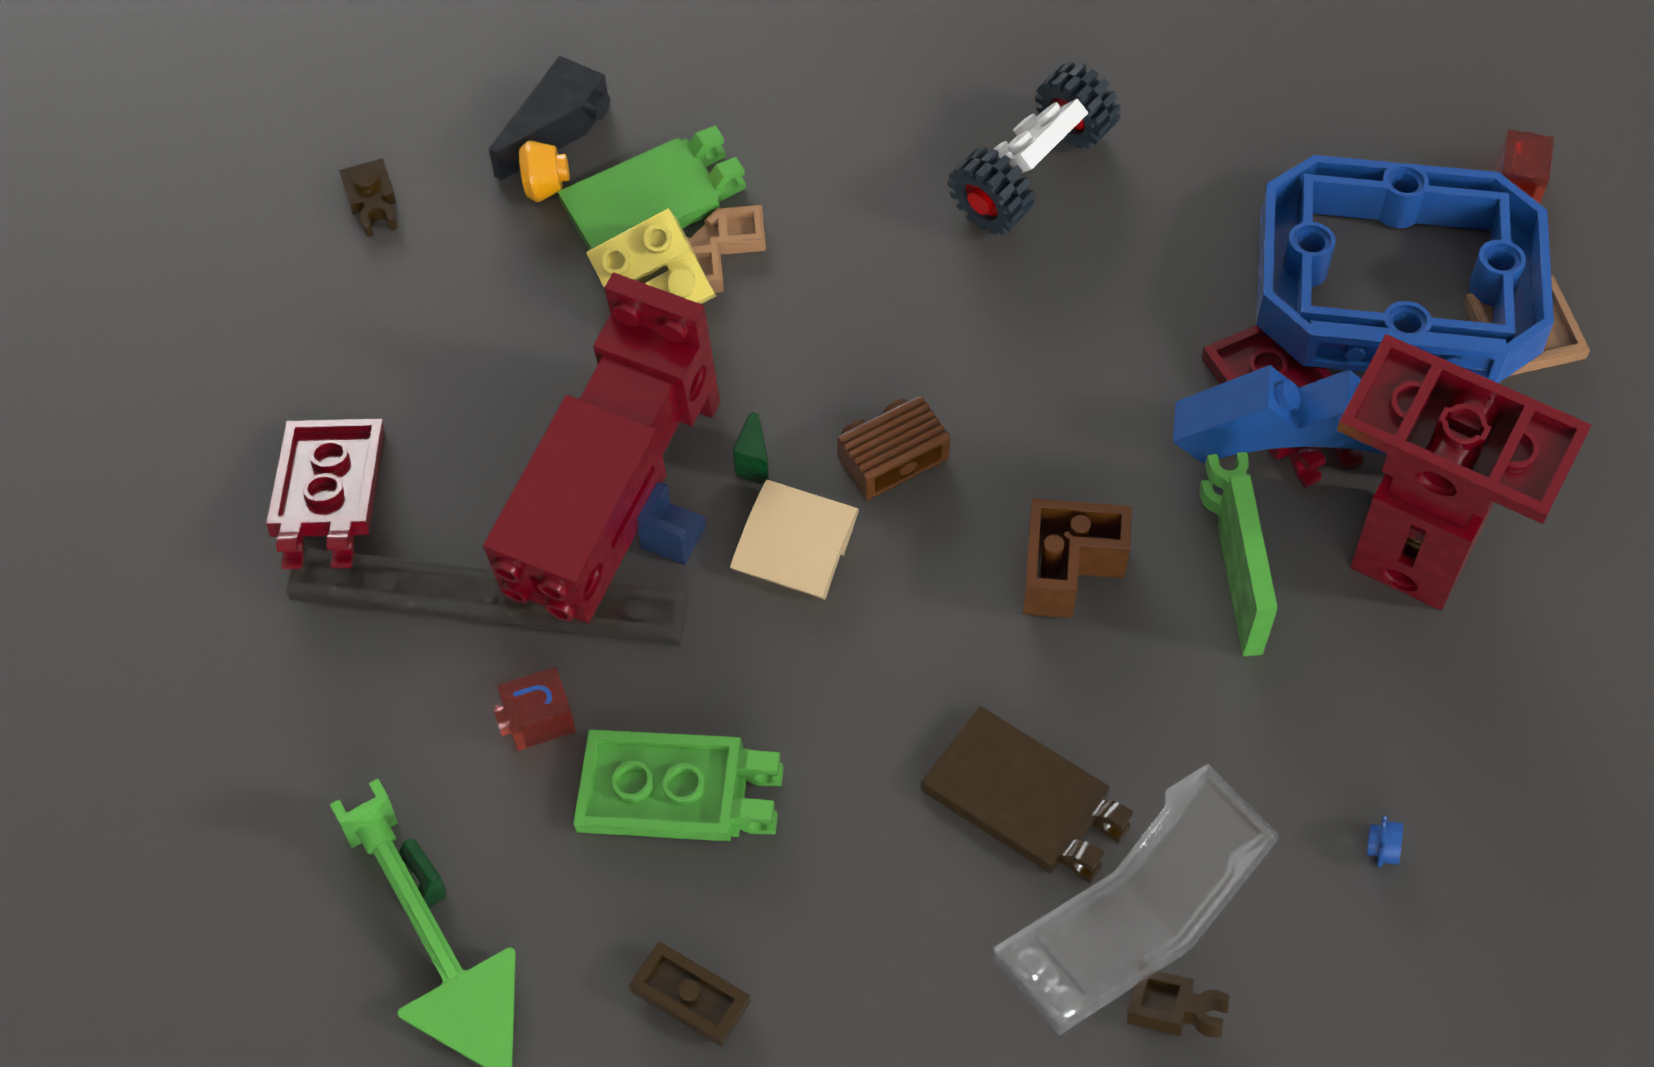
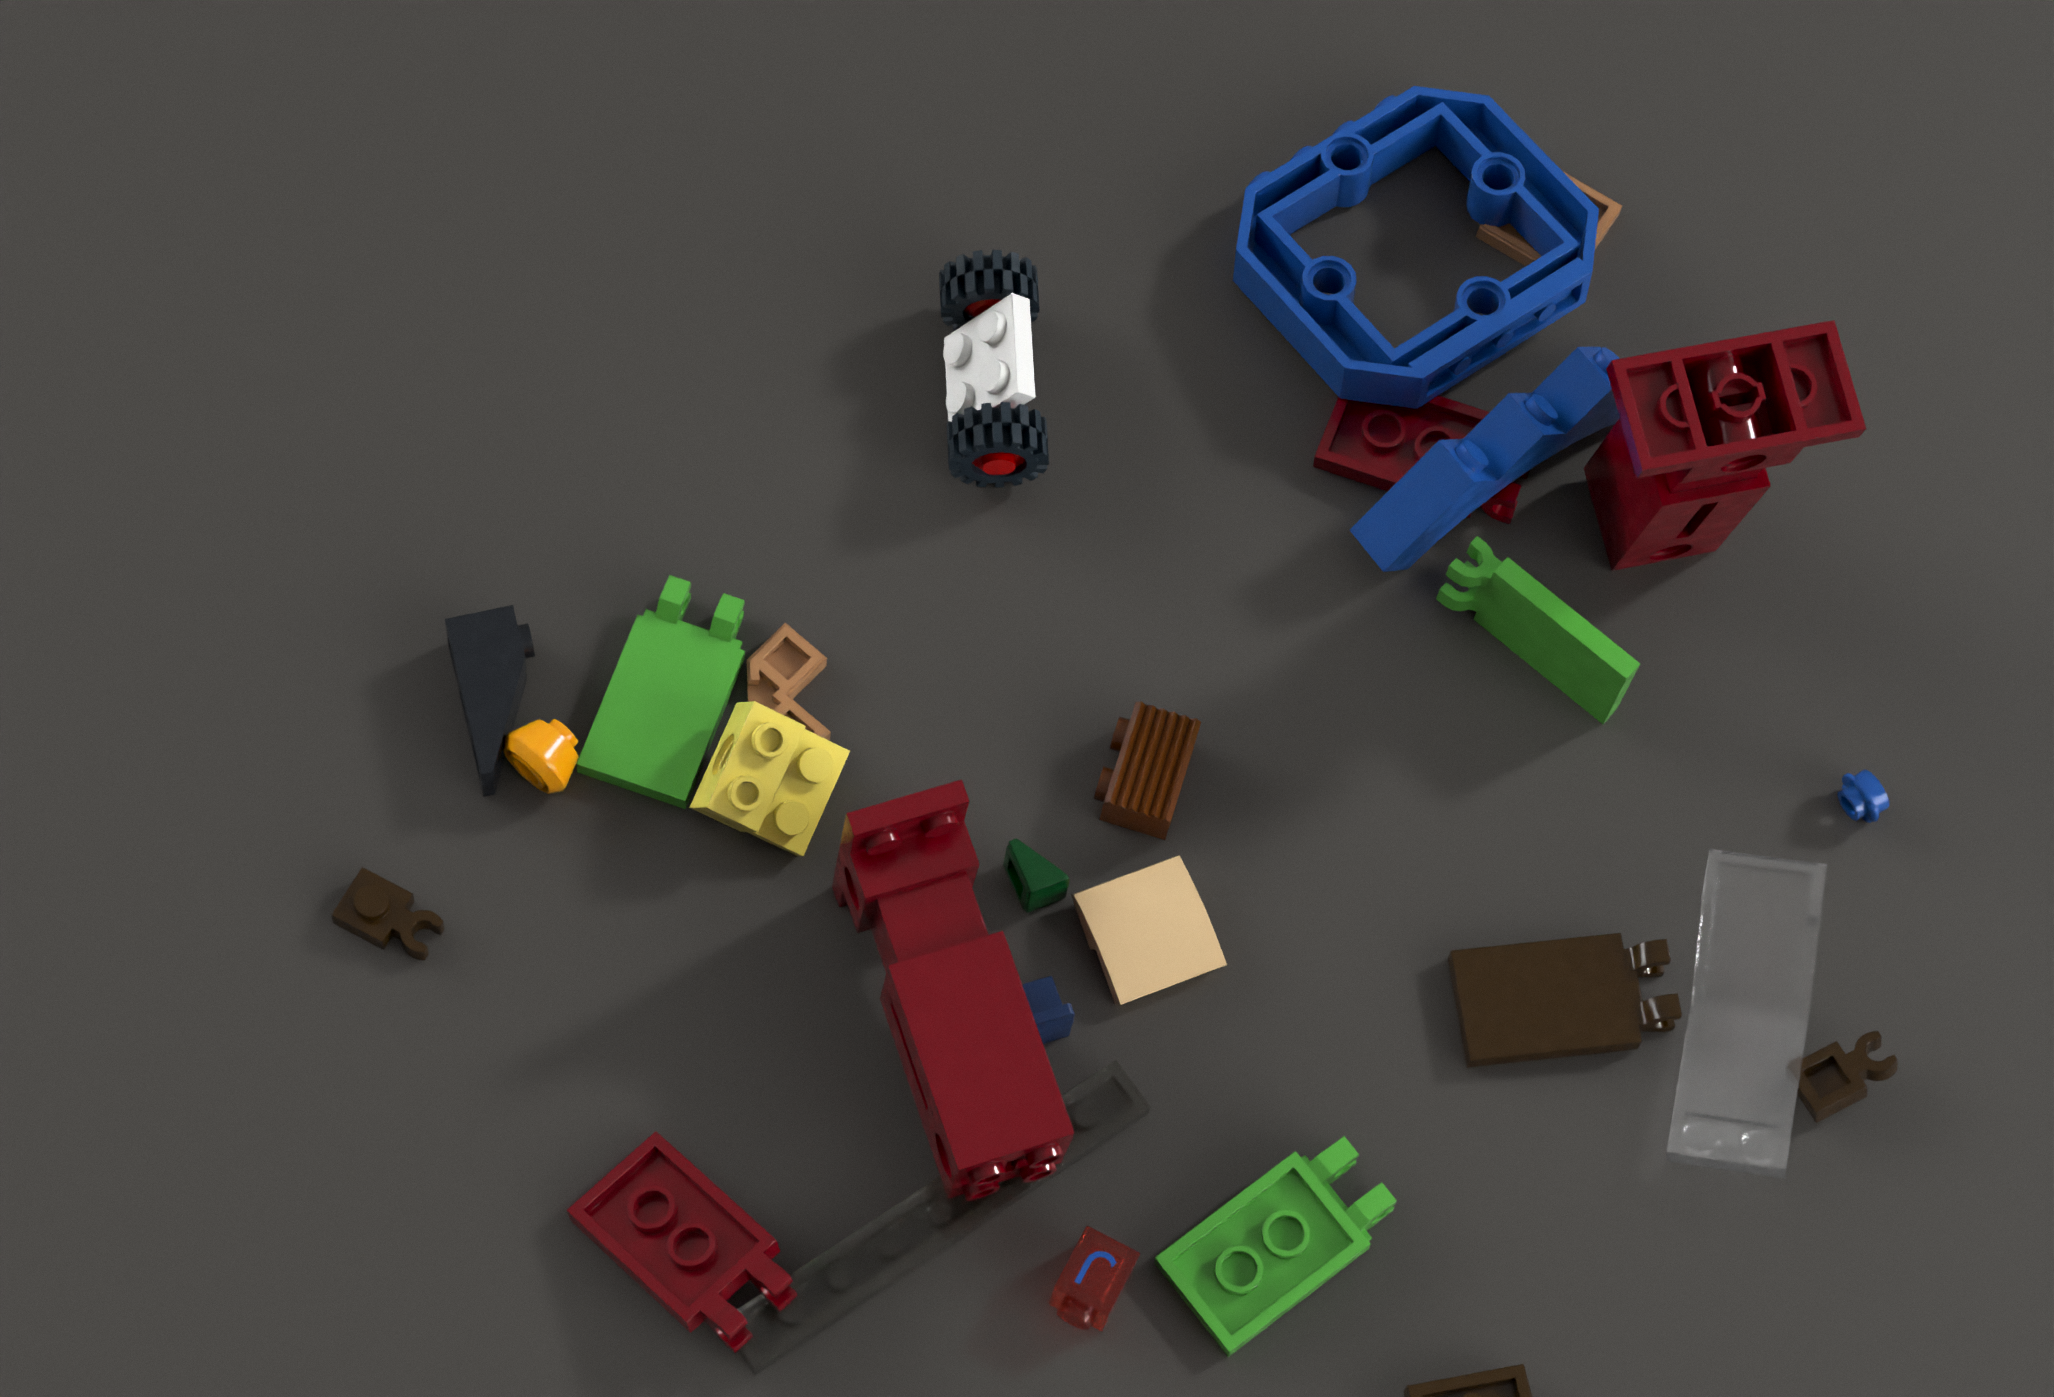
camera: 55 degrees left, 5 degrees up
(1070, 542) = (1389, 751): reddish brown brick -> none
(1527, 161) = (1417, 56): clear red brick -> none

